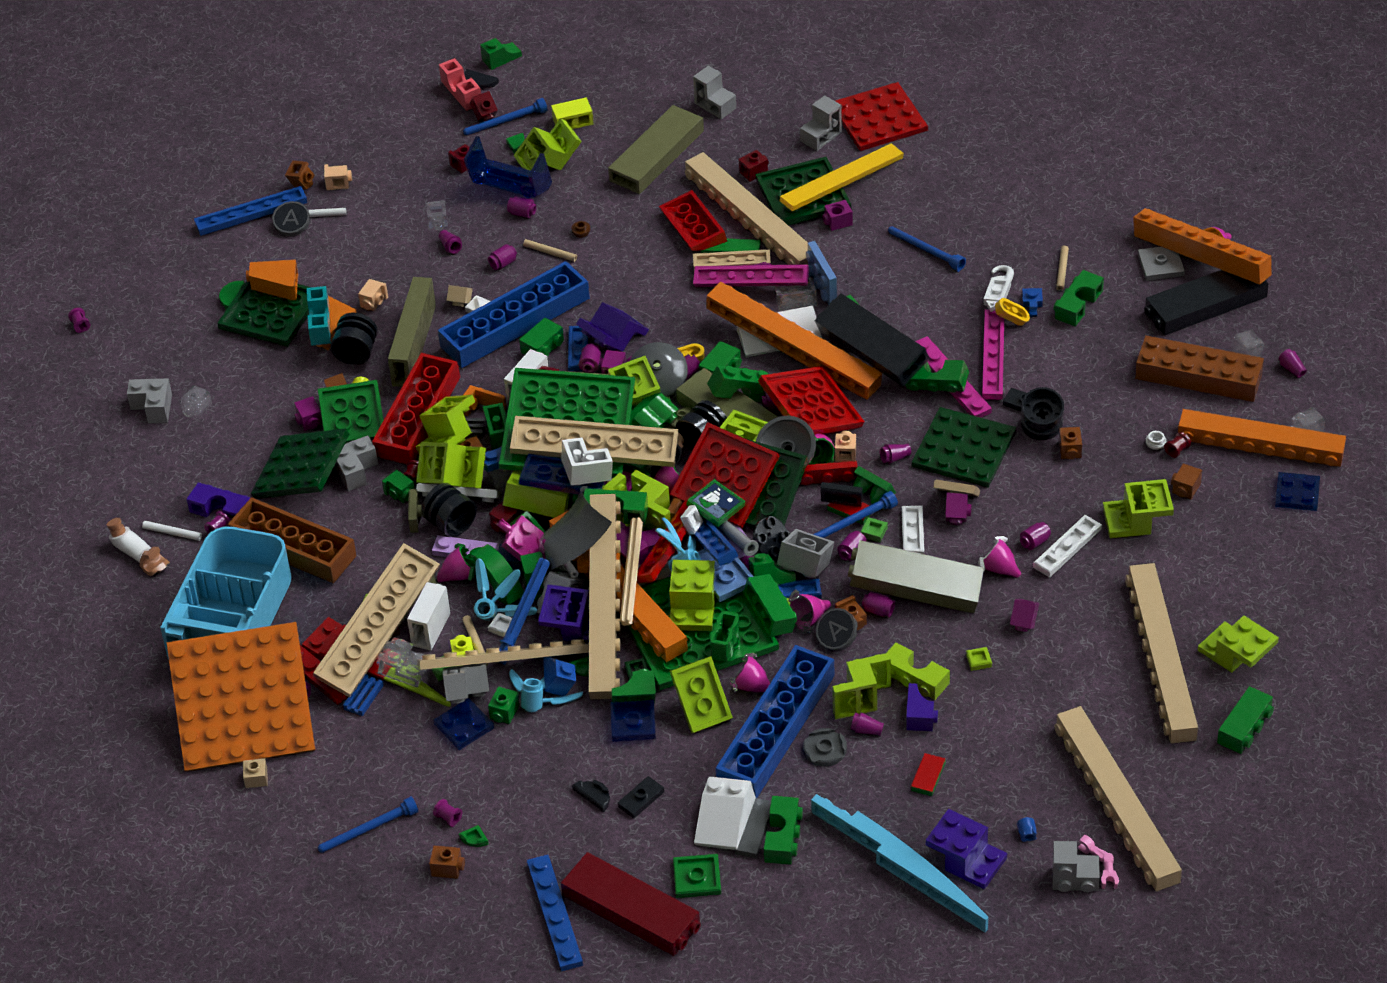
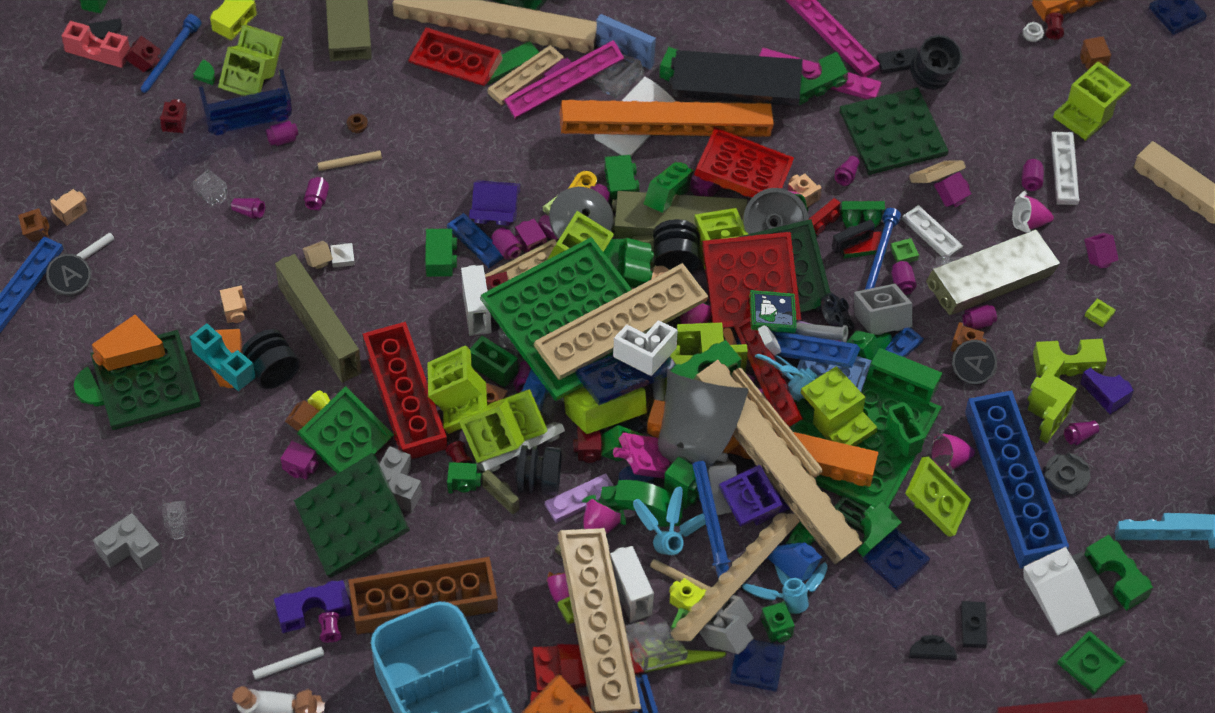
camera: 45 degrees left, 10 degrees up
(484, 397) = (441, 341): orange bracket -> none
(499, 624) = (692, 548): white tile -> none
(513, 314) = (391, 244): blue brick -> none
(808, 609) = (934, 357): clear hat -> none
(928, 774) = (1169, 442): red tile -> none
(1070, 447) = (975, 75): dark orange brick -> none

